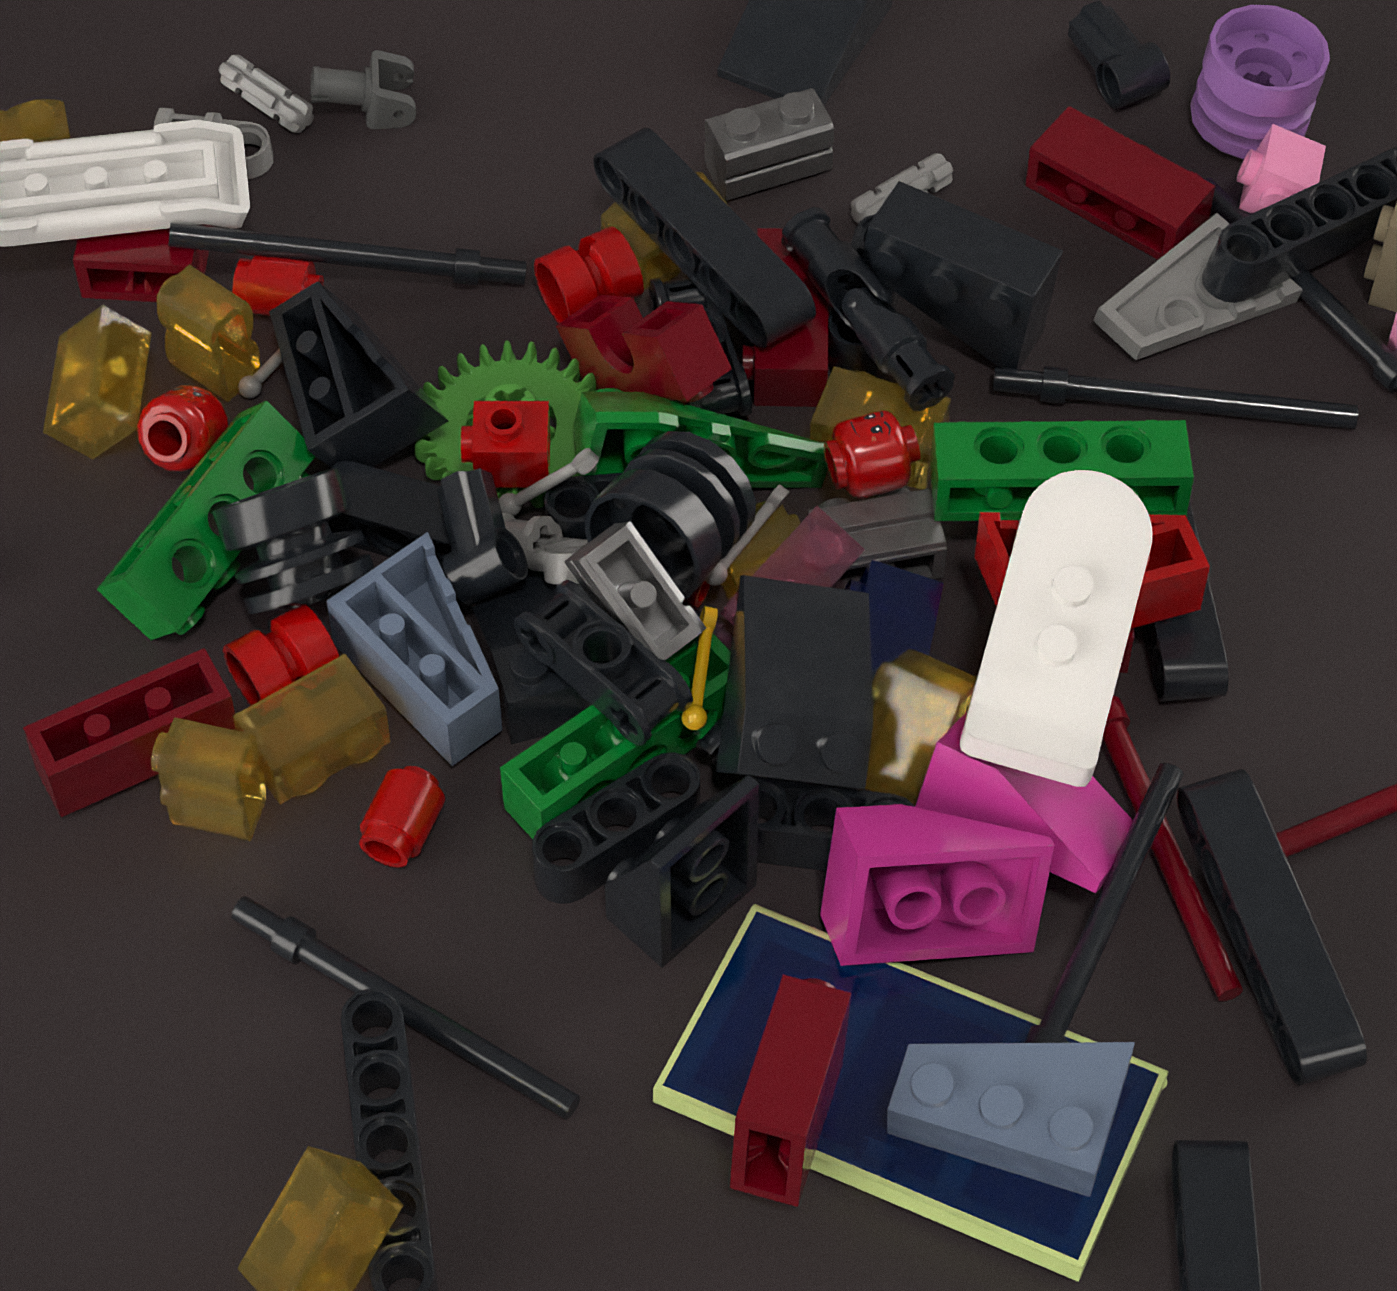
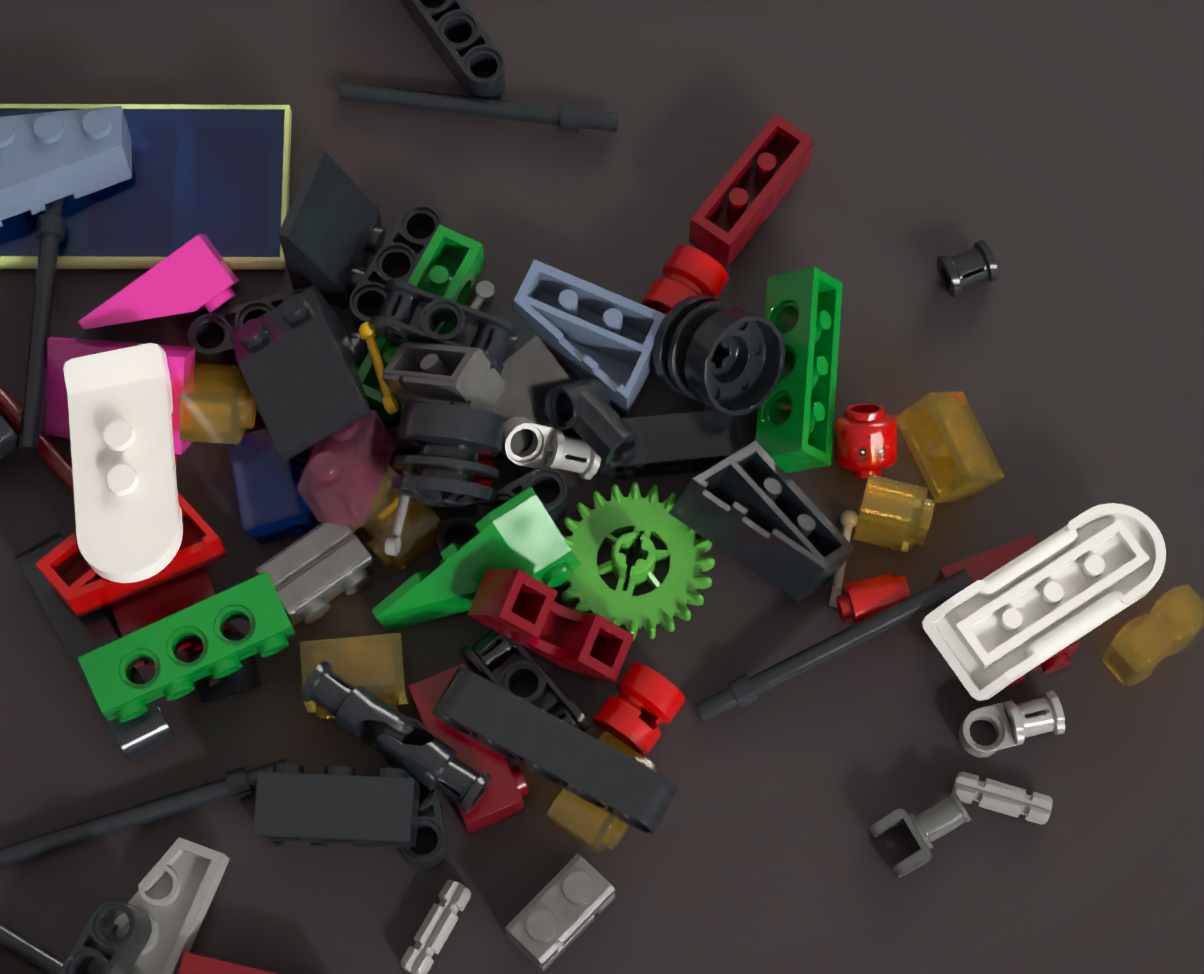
camera: 155 degrees right, 15 degrees up
(210, 778) = (677, 171): clear yellow brick -> none
(315, 728) = (637, 249): clear yellow brick -> none
(401, 816) = (545, 221): red brick -> none
(509, 441) = (611, 506): red brick -> none
(581, 464) = (594, 483): light grey hinge -> none
(790, 1090) = (188, 98): dark red brick -> none
(871, 454) = (337, 607): red head -> none

